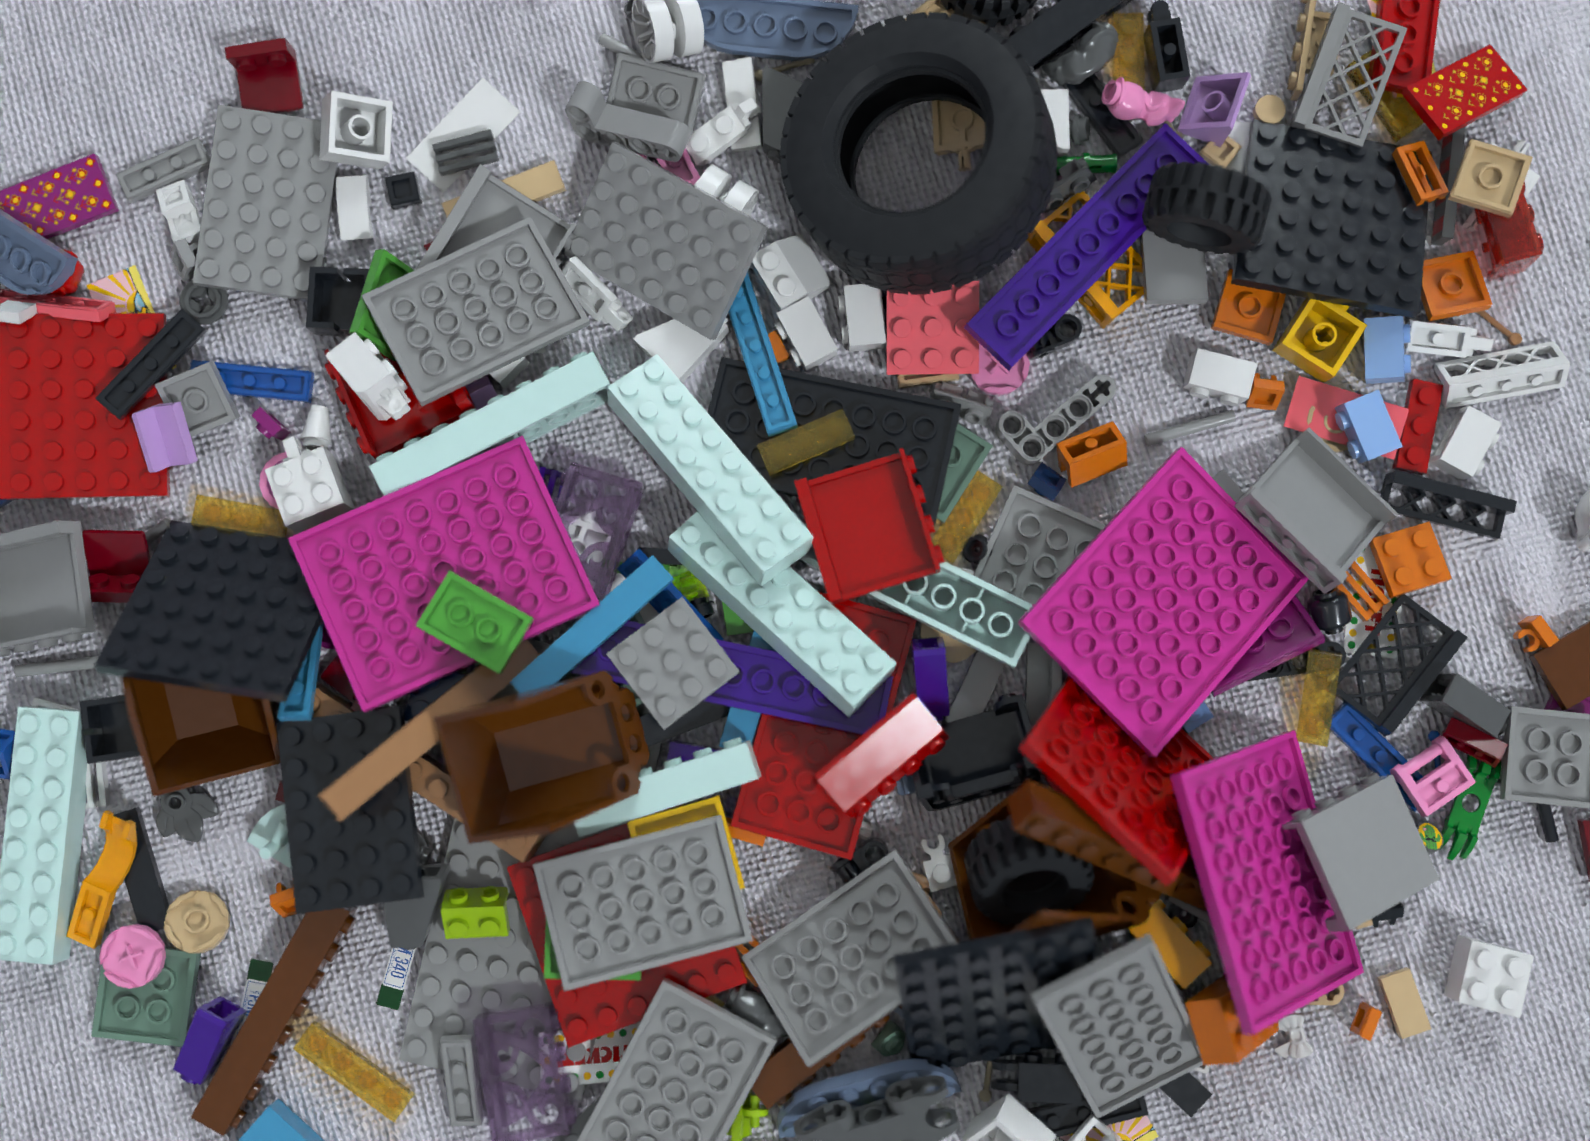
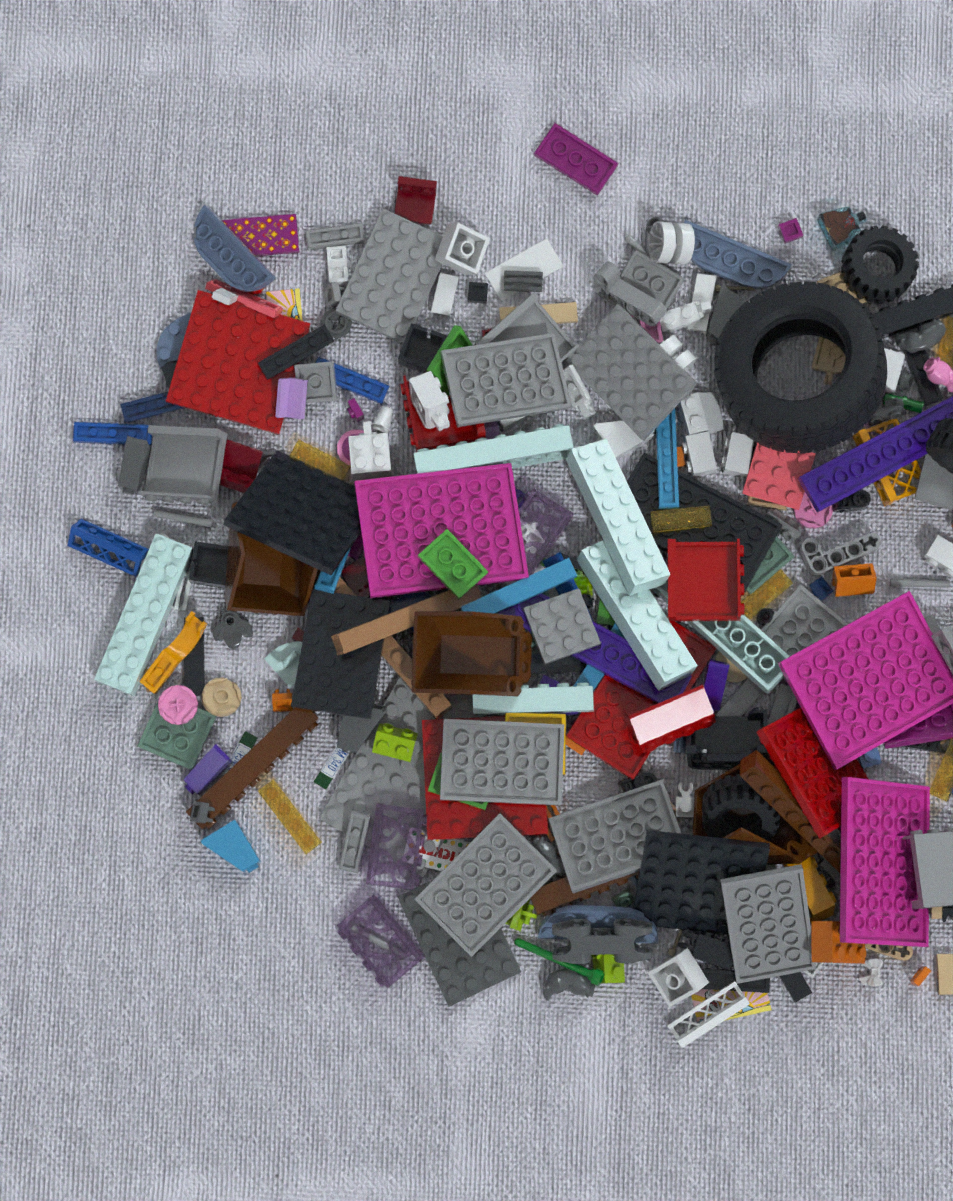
camera: 10 degrees right, 5 degrees down
(209, 1115) = (200, 811): none -> dark grey tile

